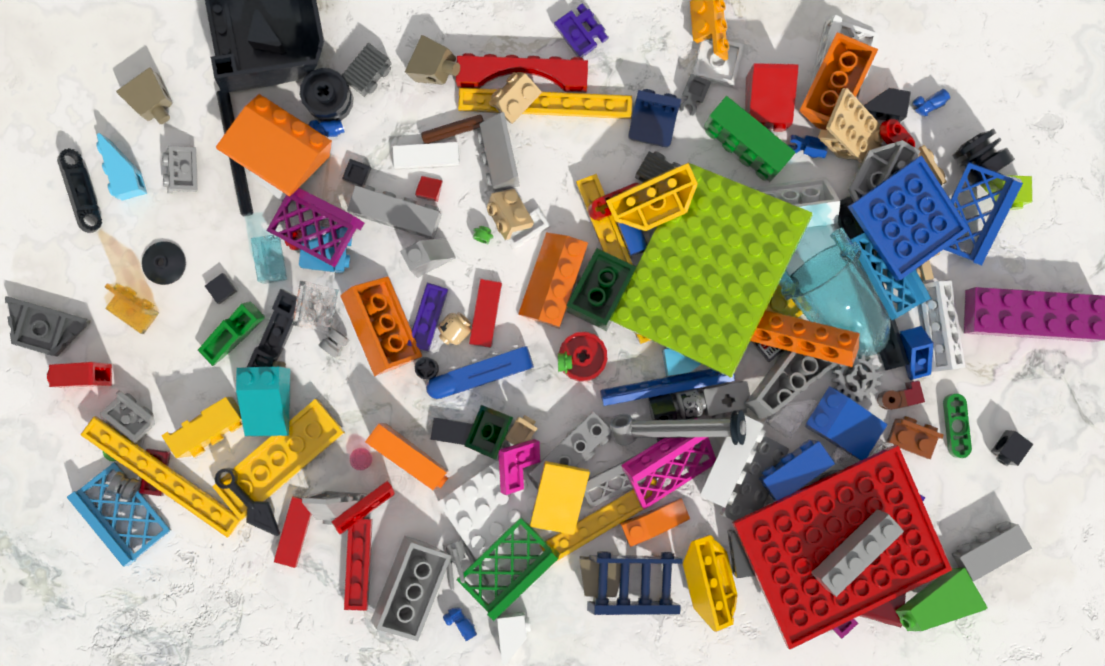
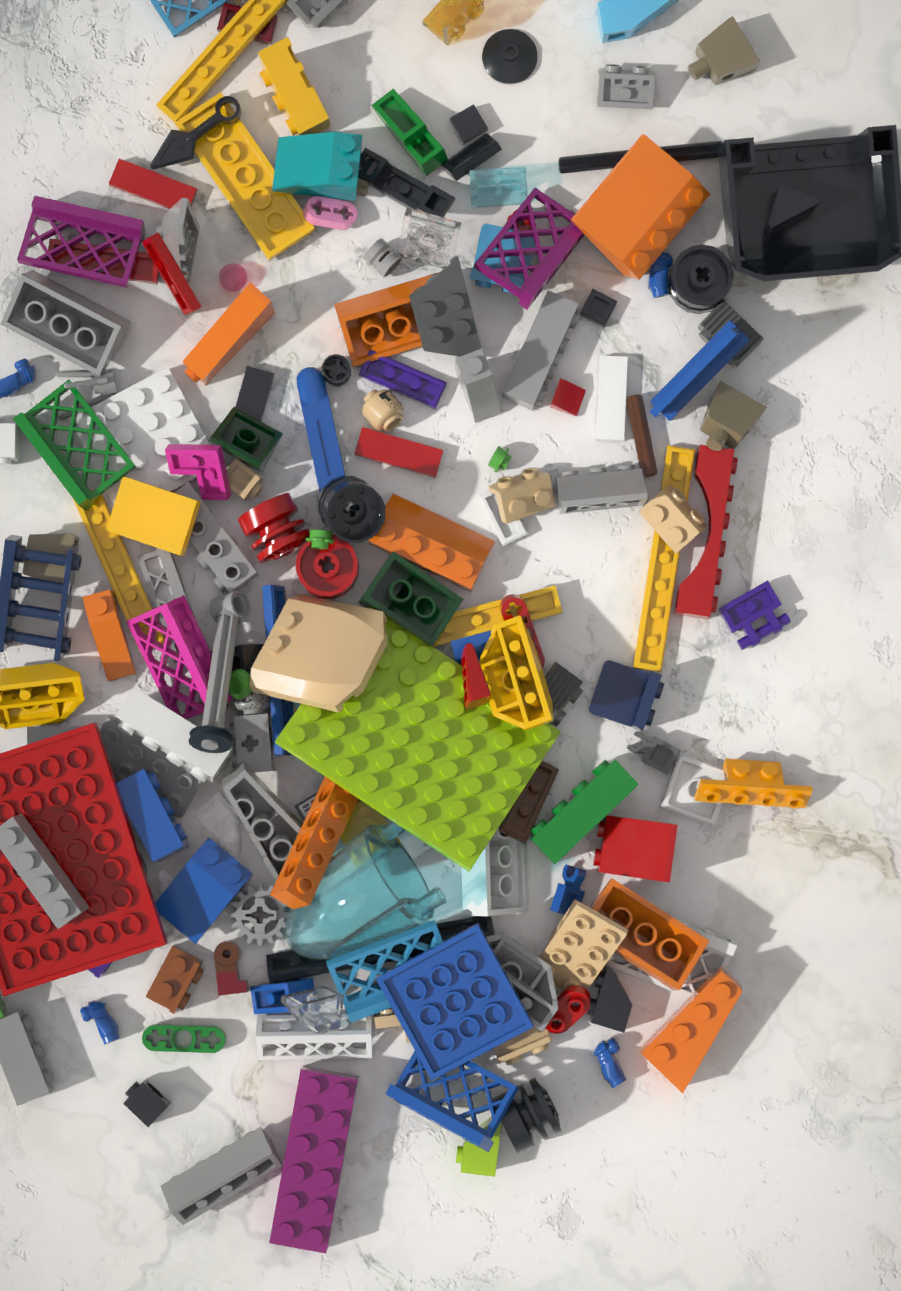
camera: 95 degrees right, 0 degrees up
(246, 282) = (471, 156): none -> black tile
(301, 388) = (330, 213): none -> bright pink beam
(326, 583) = (91, 221): none -> magenta fence
(374, 286) = (445, 313): none -> dark grey wing
(398, 88) = (699, 371): none -> blue fence
(537, 341) = (364, 517): none -> black wheel
(558, 400) = (274, 527): none -> red wheel
(654, 351) = (319, 652): none -> tan wedge
(658, 231) = (474, 682): none -> red slope
(685, 411) = (239, 684): none -> bright green tile
(757, 181) = (528, 805): none -> reddish brown tile
(899, 41) = (688, 1034): none -> orange wedge
(926, 323) = (316, 1008): none -> clear slope
(954, 488) = (105, 1023): none -> blue arm
(1060, 384) = (221, 1176): none -> light grey brick

